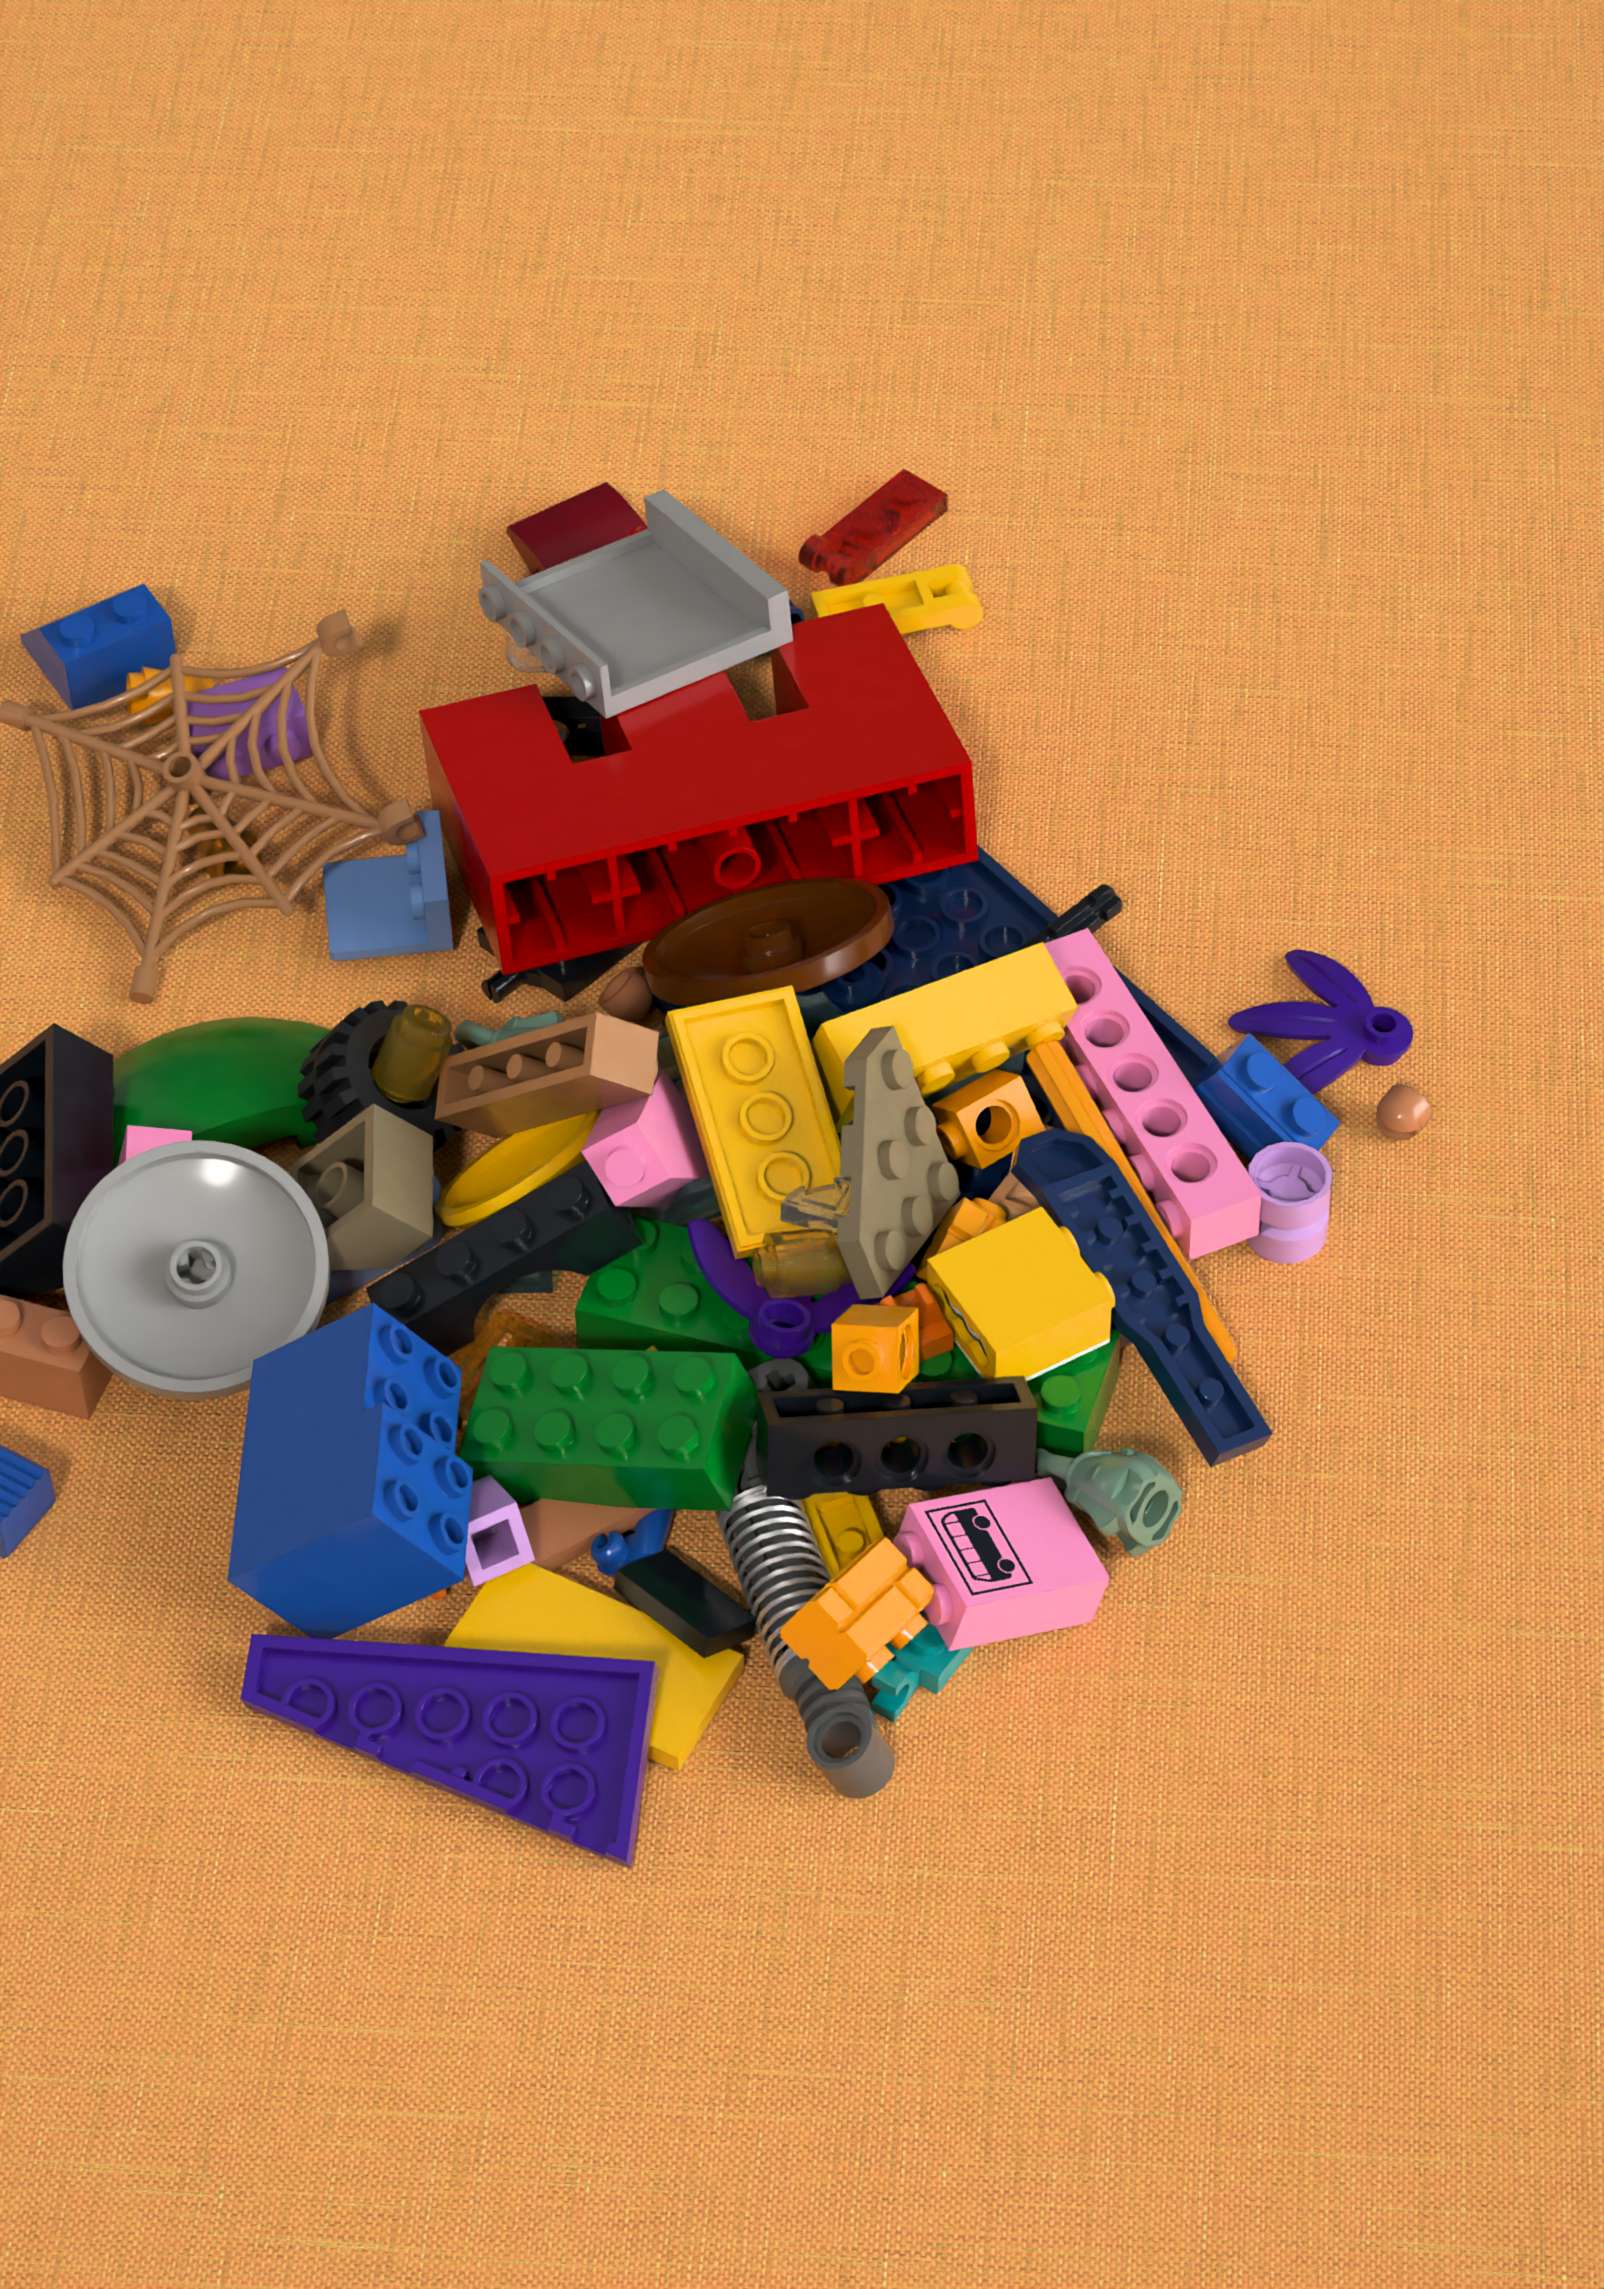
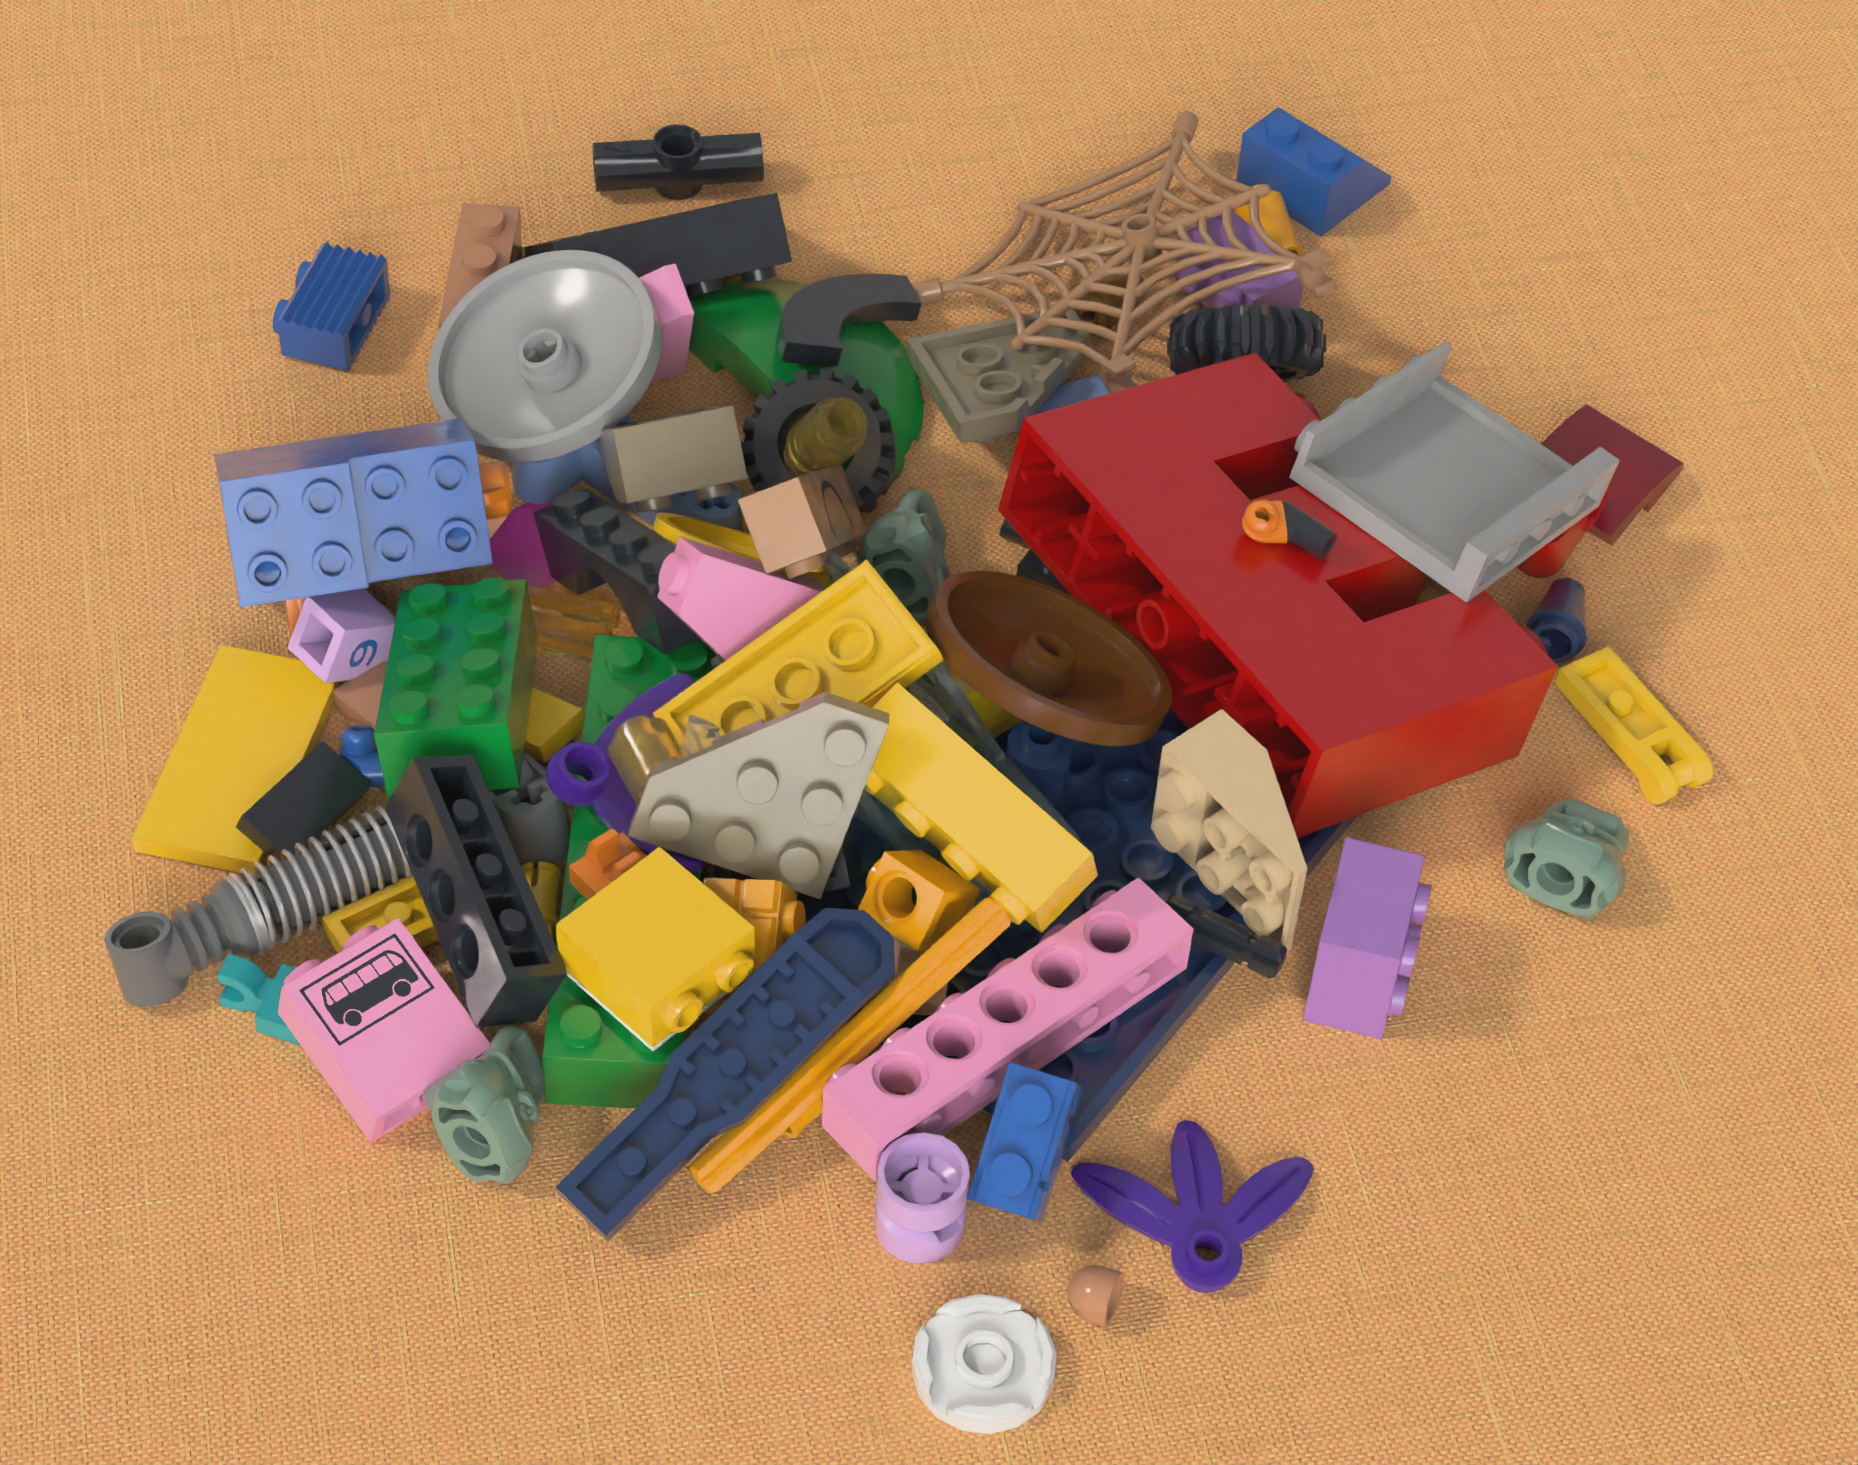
camera: 70 degrees right, 0 degrees up
(174, 1046) = (818, 312): none -> black tile
(313, 957) = (984, 382): none -> dark tan plate
(366, 731) = (1282, 336): none -> black gear
(508, 1730) = (138, 700): dark purple wing -> none
(685, 723) = (1285, 523): none -> arm
(858, 1614) = (258, 905): light orange brick -> none
(874, 530) = (1736, 690): clear red plate -> none
(875, 1348) = (542, 831): light orange brick -> none
(985, 870) = (1231, 824): none -> tan slope
(1034, 685) = (1569, 858): none -> sand green piece
(1106, 828) = (1368, 939): none -> medium lavender brick
(1444, 1211) = (983, 1364): none -> white tile

